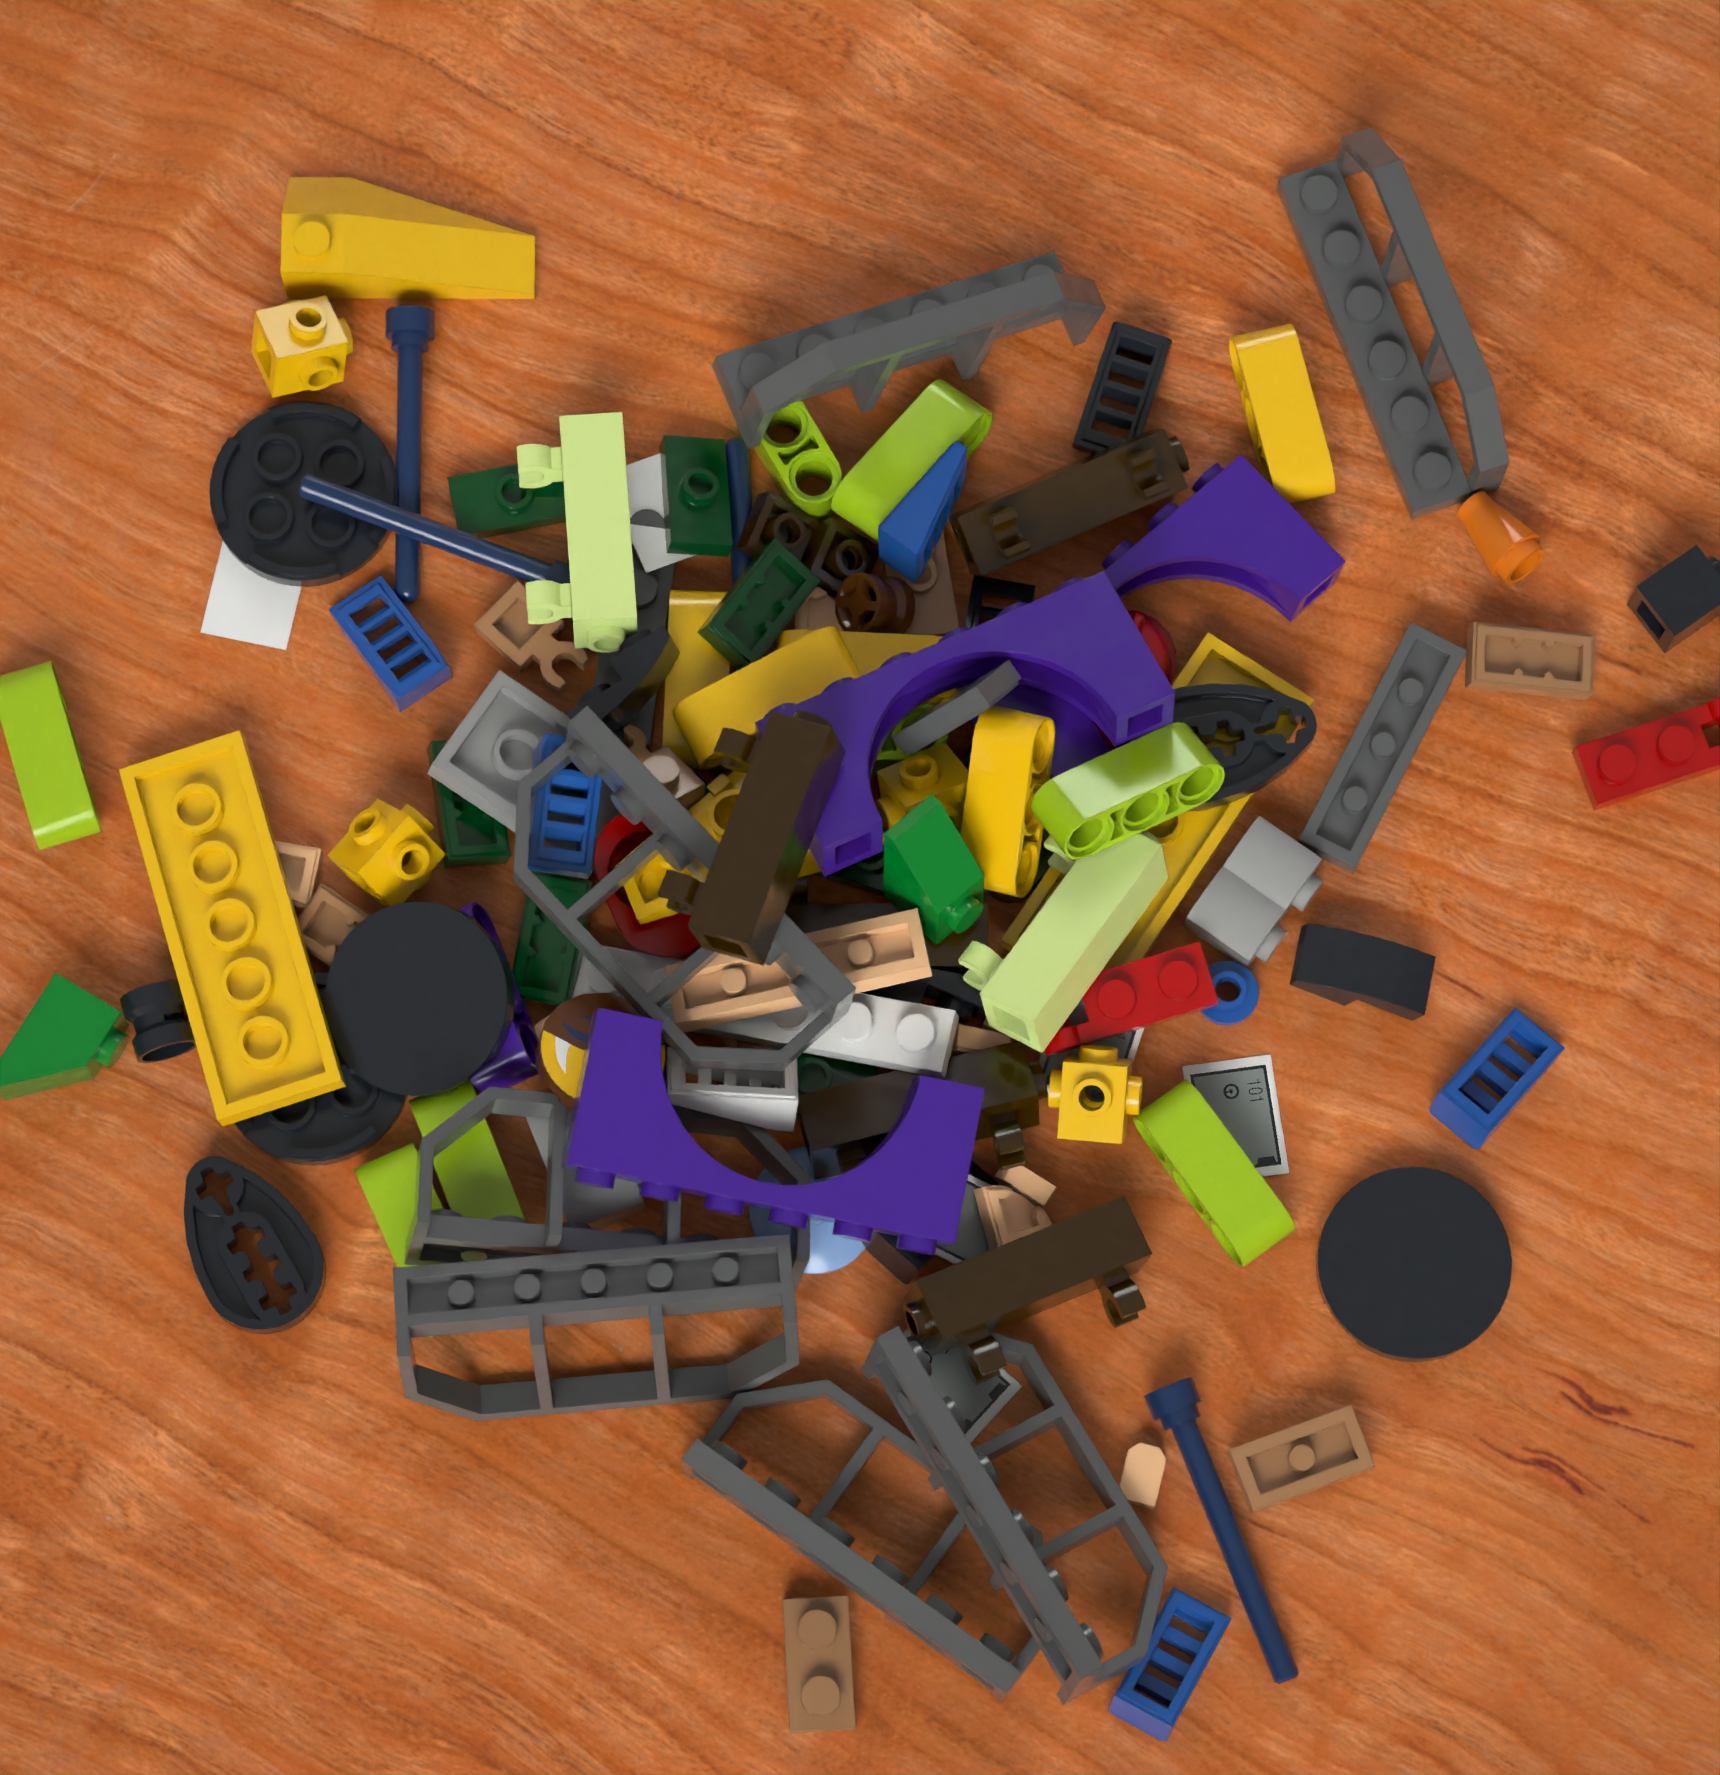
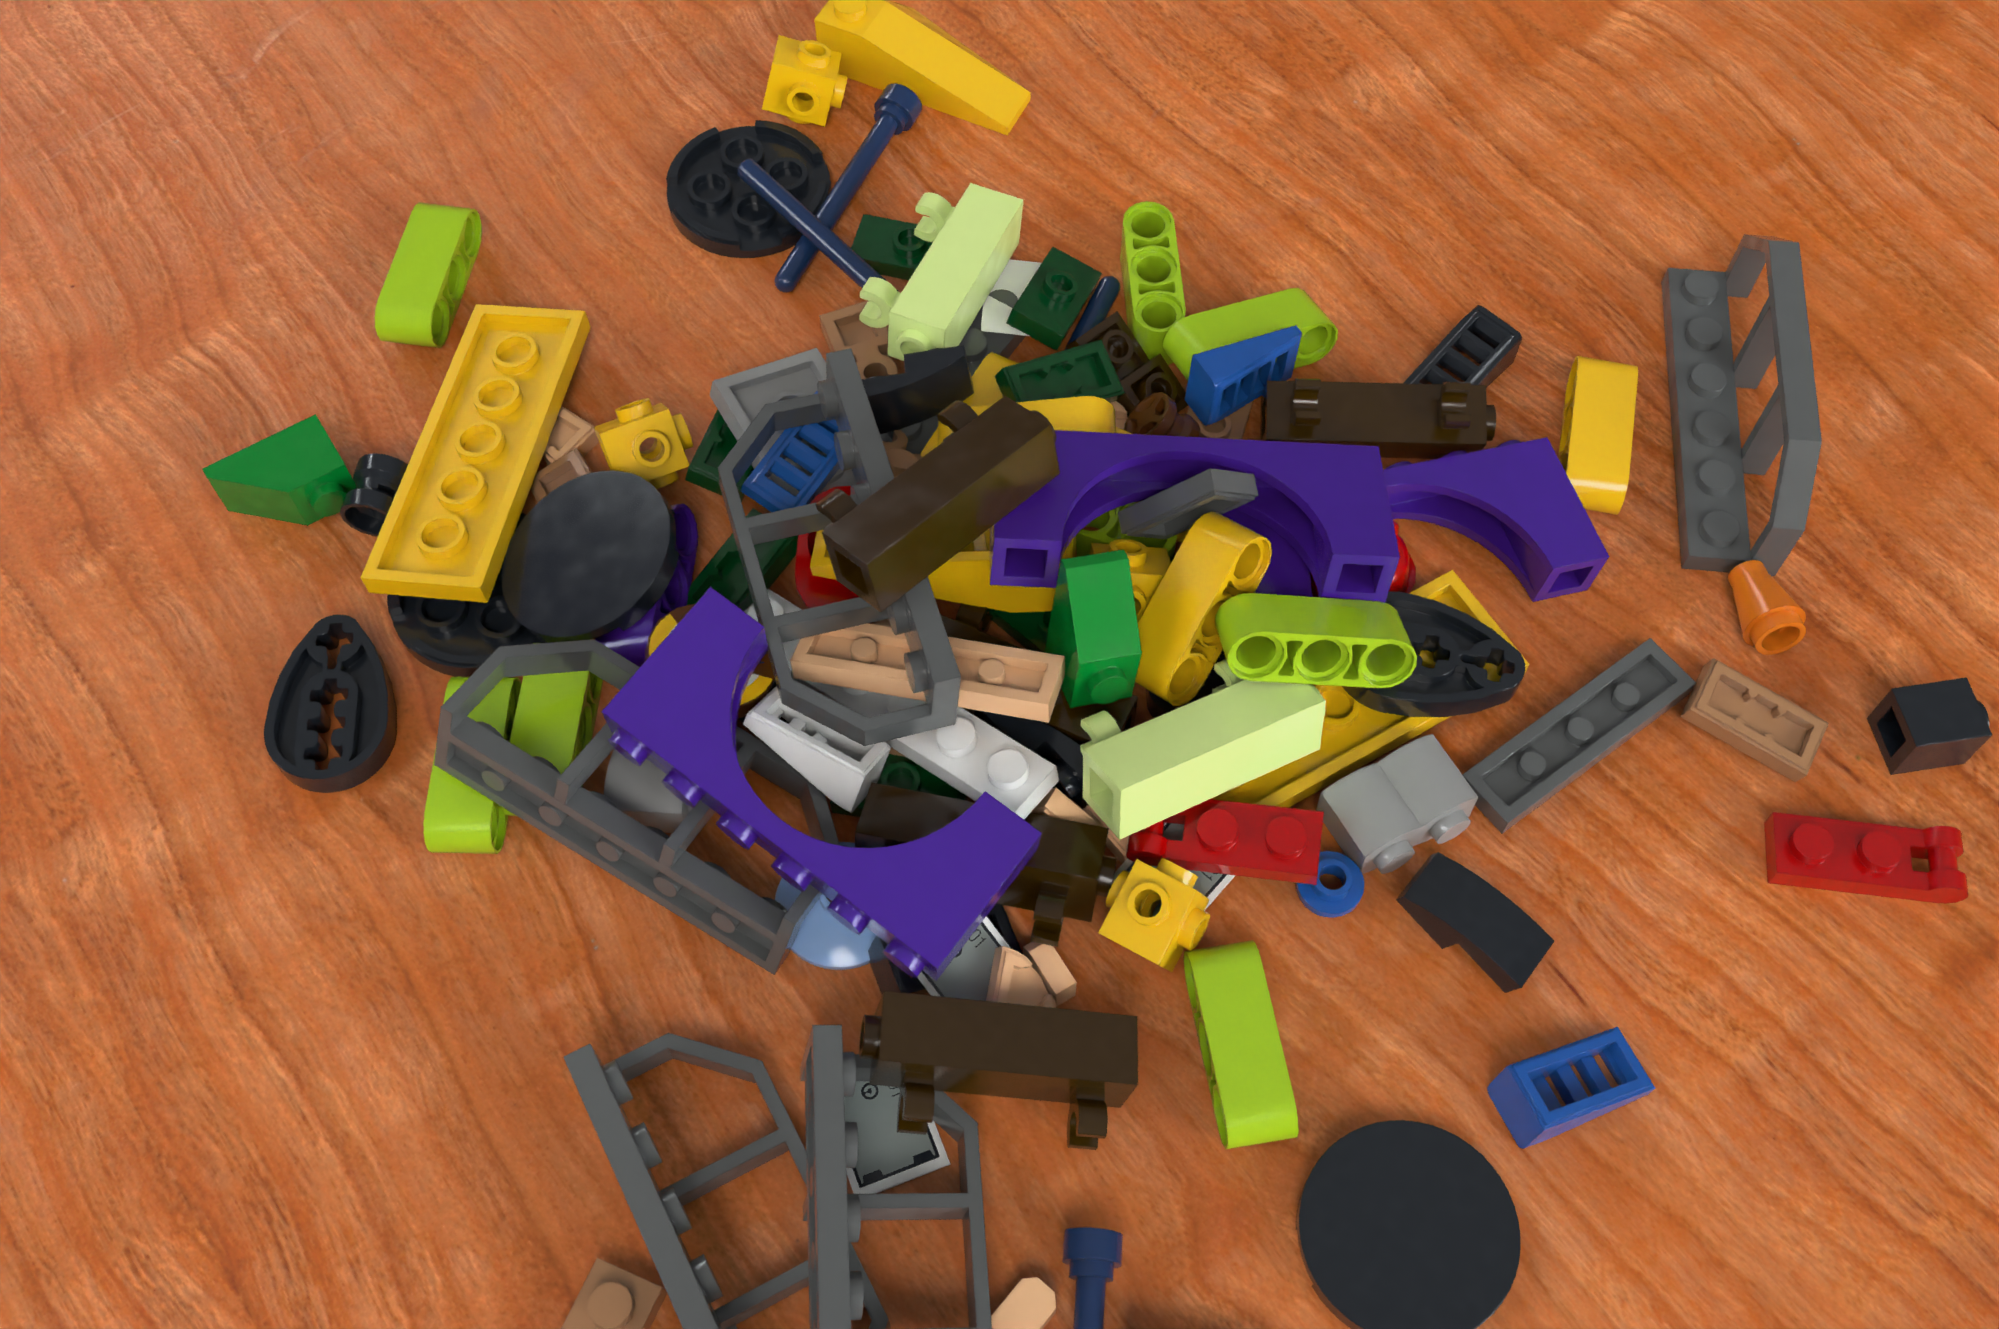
camera: 30 degrees right, 15 degrees down
(248, 605) = (659, 248): white sticker -> none
(418, 681) = (756, 340): blue slope -> none
(595, 1289) = (575, 852): dark grey plate -> none
(875, 342) = (1176, 221): dark grey plate -> none
(1247, 1104) = (1304, 1002): light grey sticker -> none

